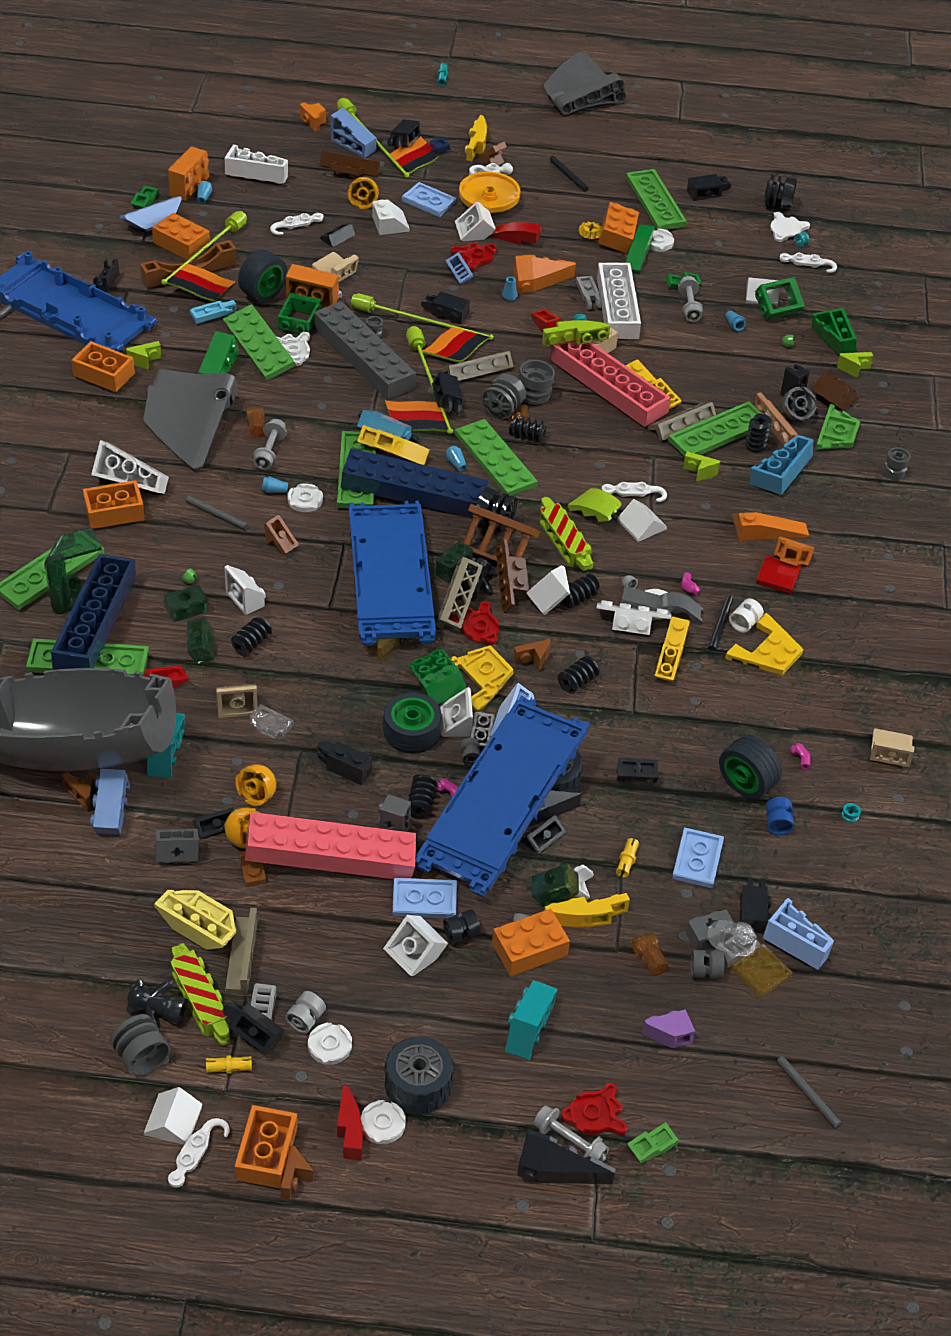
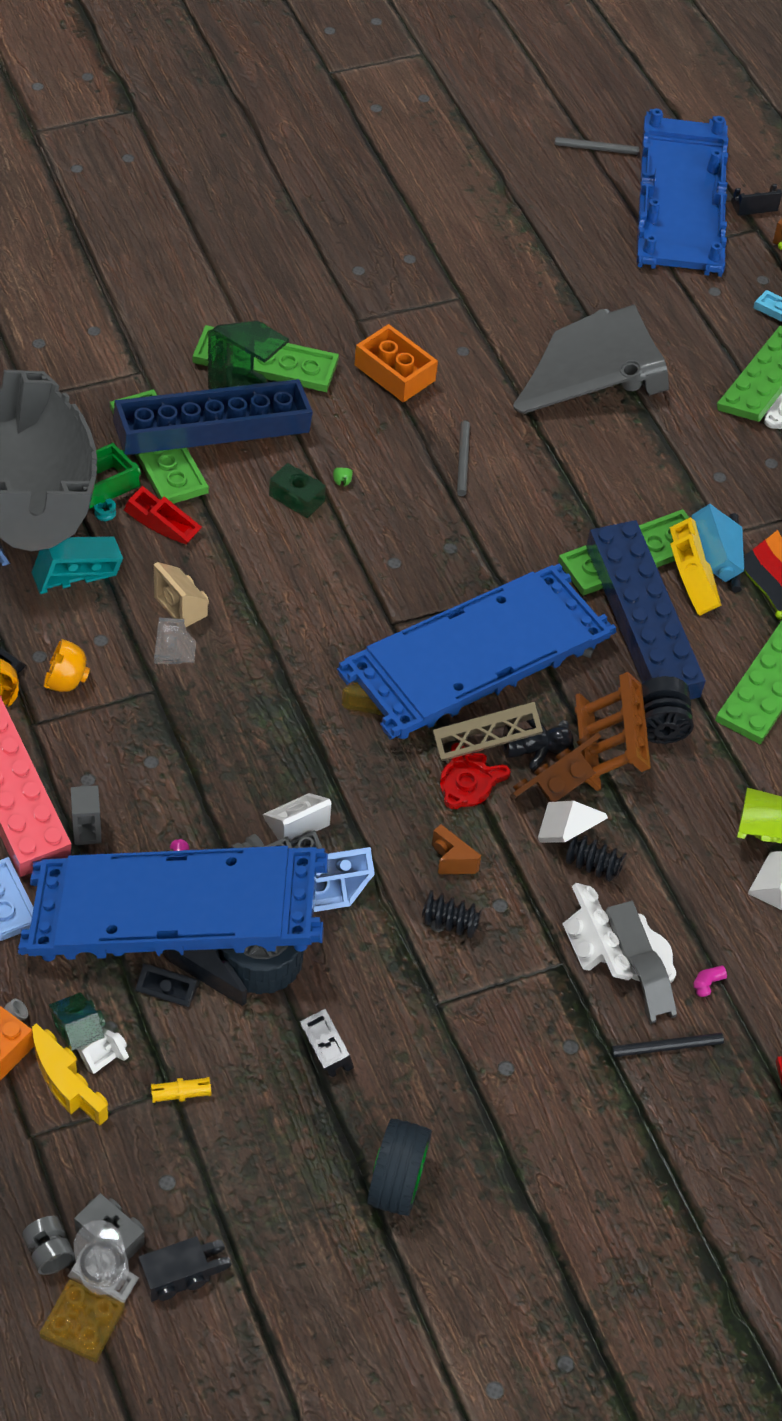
camera: 60 degrees right, 5 degrees up
(103, 366) = (603, 260): orange brick -> none
(121, 467) = (455, 347): white wedge -> none
(144, 353) = (659, 284): lime slope -> none
(200, 640) = (244, 525): clear green brick -> none
(220, 354) = (702, 349): green wedge -> none
(243, 590) = (350, 528): white slope -> none
(250, 636) = (284, 567): black piece -> none
(256, 420) = (639, 423): clear orange piece -> none
(264, 457) = (575, 458): light grey piece -> none
(273, 485) = (542, 486): dark azure cone -> none
(279, 533) = (462, 524): dark orange slope -> none
(305, 498) = (550, 526): white tile -> none
(345, 761) = (151, 736): black hinge -> none
(412, 722) = (251, 773): black wheel -> none
(422, 795) = (145, 829): black piece -> none
(438, 676) = (341, 768): green slope -> none
(447, 562) = (551, 705): clear green brick -> none
(455, 457) = (733, 638): dark azure cone -> none
(487, 671) = (389, 817): yellow wing -> none
(565, 535) = (686, 804): lime hinge -> none
(629, 581) = (662, 910): light grey hinge -> none
(648, 948) = (42, 1167): clear orange piece -> none
(672, 649) = (571, 1005): yellow slope -> none
(698, 857) = (231, 1172): light blue tile -> none
(746, 615) = (693, 1067): white wheel -> none
(775, 653) = (658, 1132): yellow wing -> none
(780, 816) = (354, 1241): blue wheel -> none
(798, 936) = (153, 1334): light blue wedge -> none
(804, 755) = (490, 1236): dark pink arm -> none
(851, 818) = (415, 1339): teal bush -> none
(892, 747) = (576, 1344): tan bracket -> none

